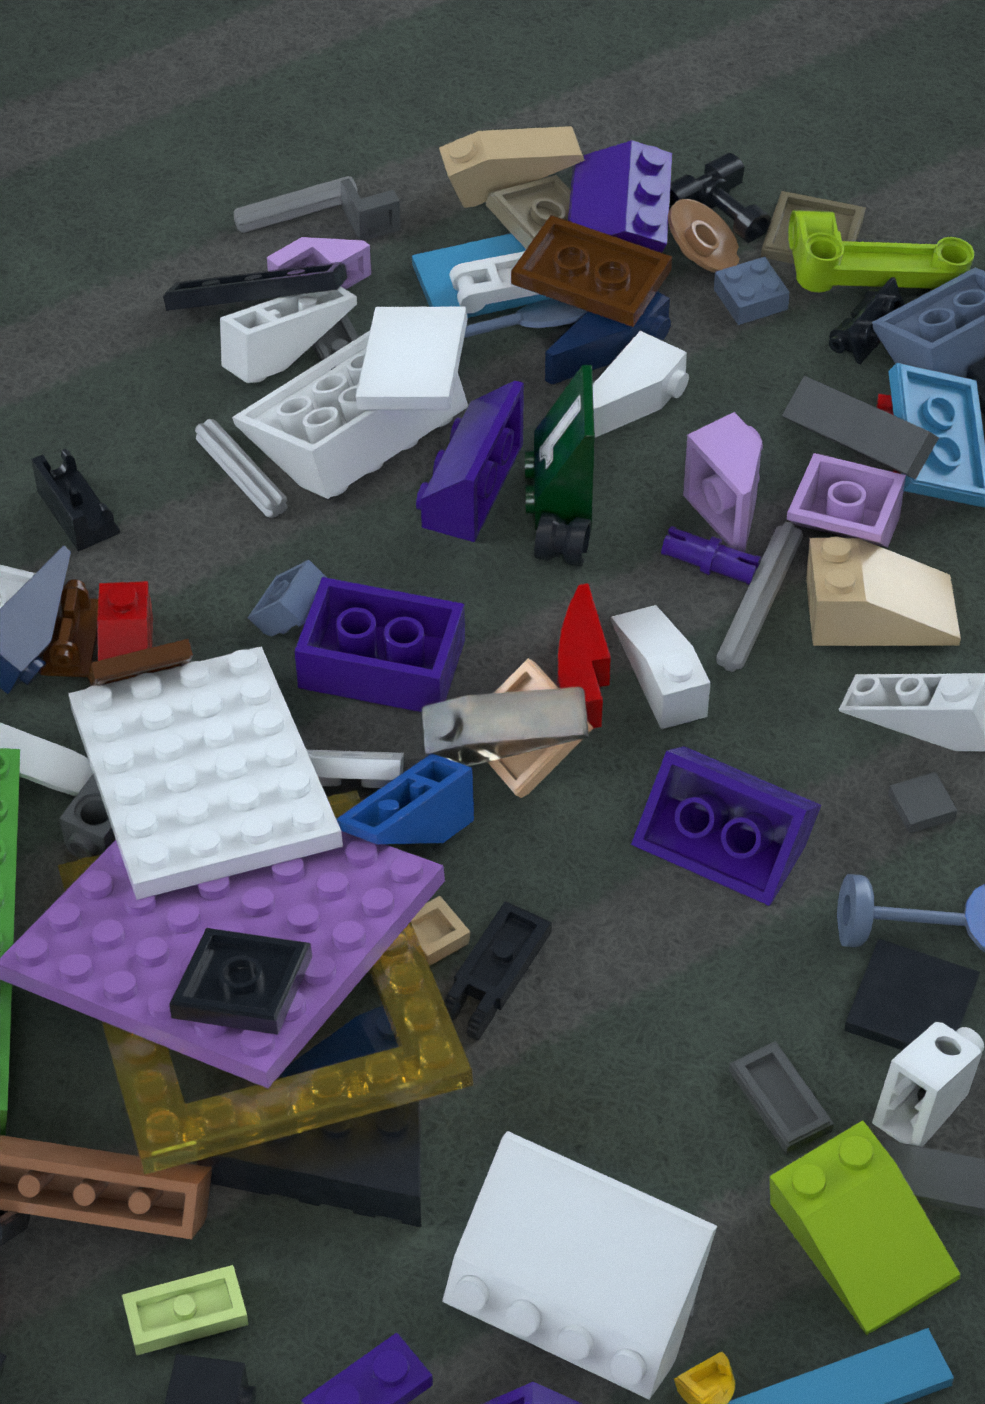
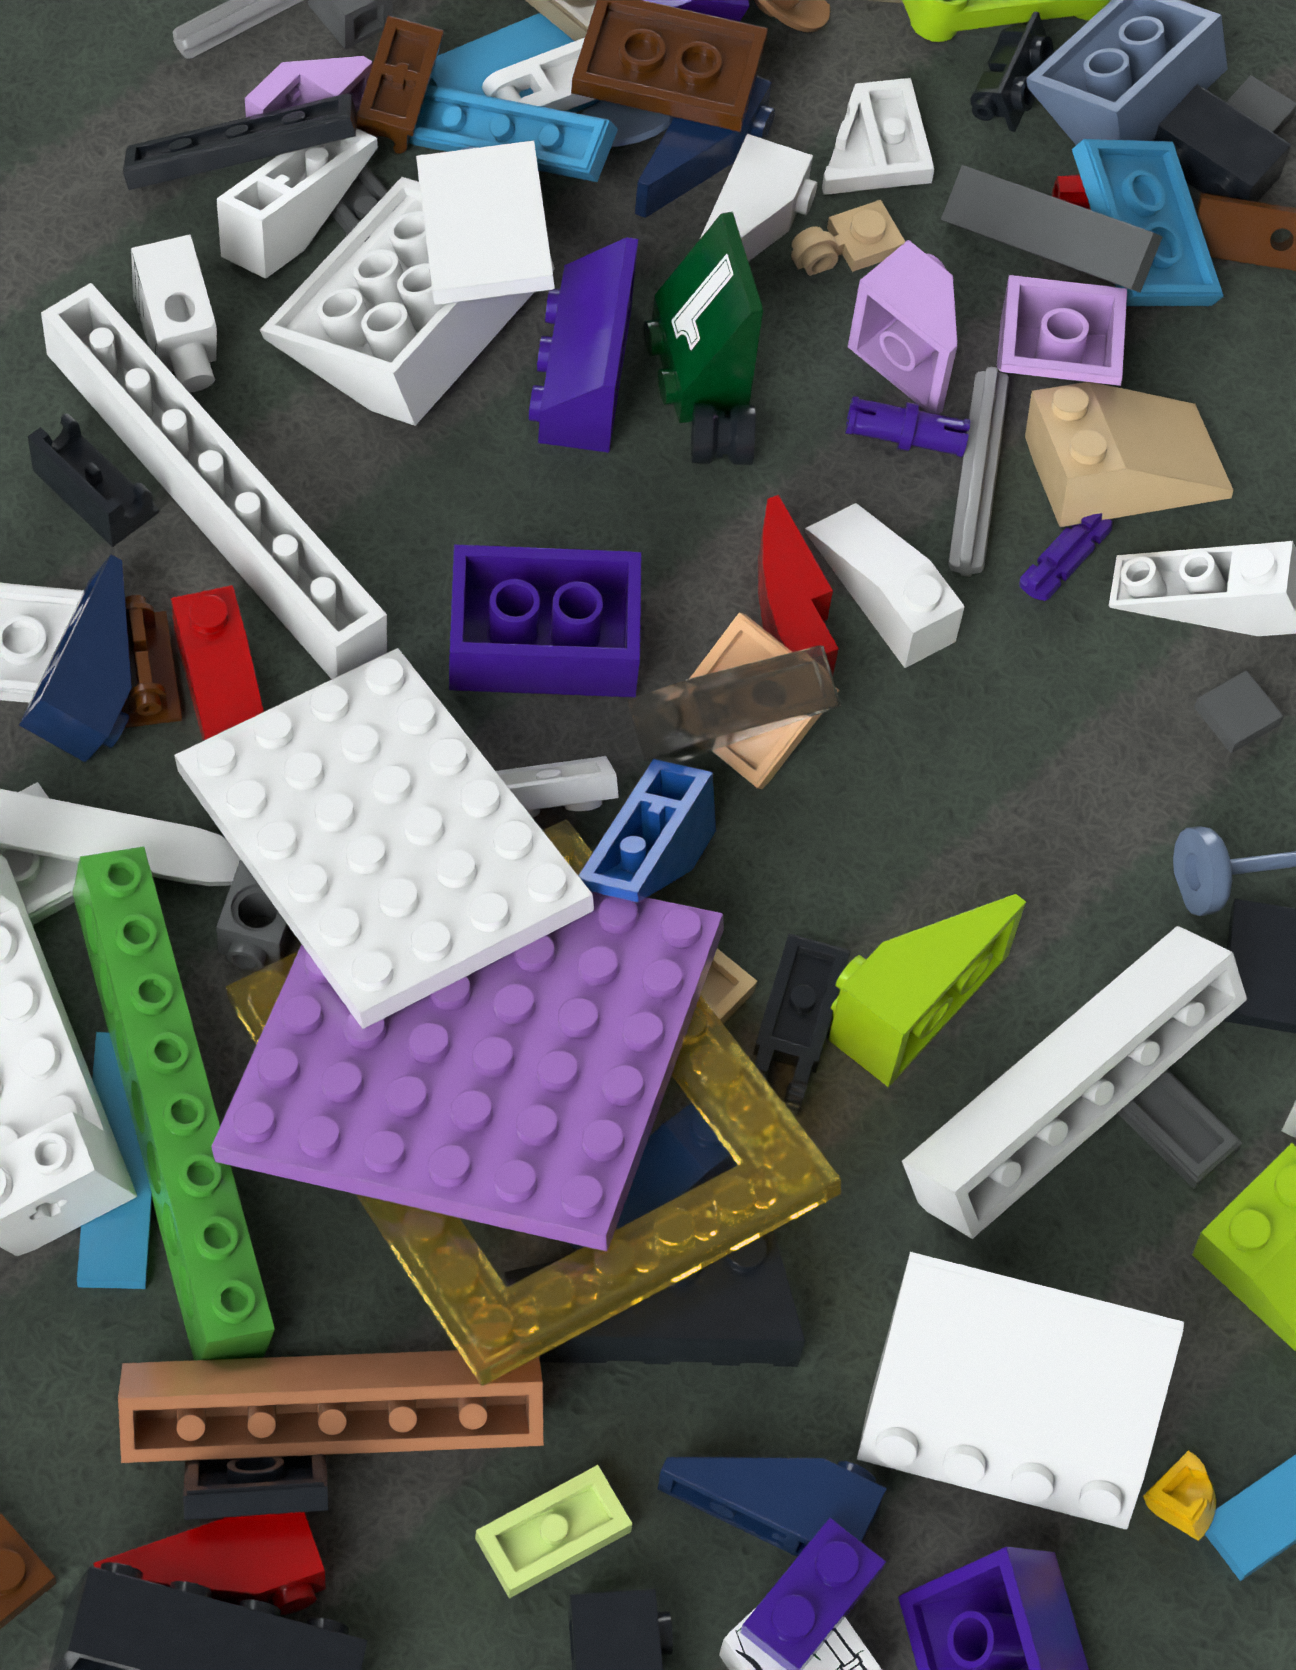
camera: 20 degrees left, 10 degrees up
(140, 662) = (259, 703): reddish brown tile -> none
(161, 513) = (214, 483): none -> white brick
(169, 404) = (175, 309): none -> white torso
(241, 468) = (289, 398): light grey axle -> none
(241, 981) = (538, 1121): black tile -> none
(287, 599) = (411, 572): sand blue piece -> none
(369, 1313) = (776, 1497): none -> dark blue slope
(384, 260) = (399, 81): none -> reddish brown hinge
(489, 312) = (563, 140): none -> dark azure tile
(596, 951) = (917, 984): none -> lime slope
(677, 422) = (860, 235): none -> tan plate
(703, 1048) = (1074, 1081): none -> white brick
(724, 824) = (1021, 784): dark purple slope -> none
(747, 354) = (880, 141): none -> white wing
(751, 290) = (859, 49): sand blue piece -> none
(812, 667) = (1064, 556): none -> dark purple axle

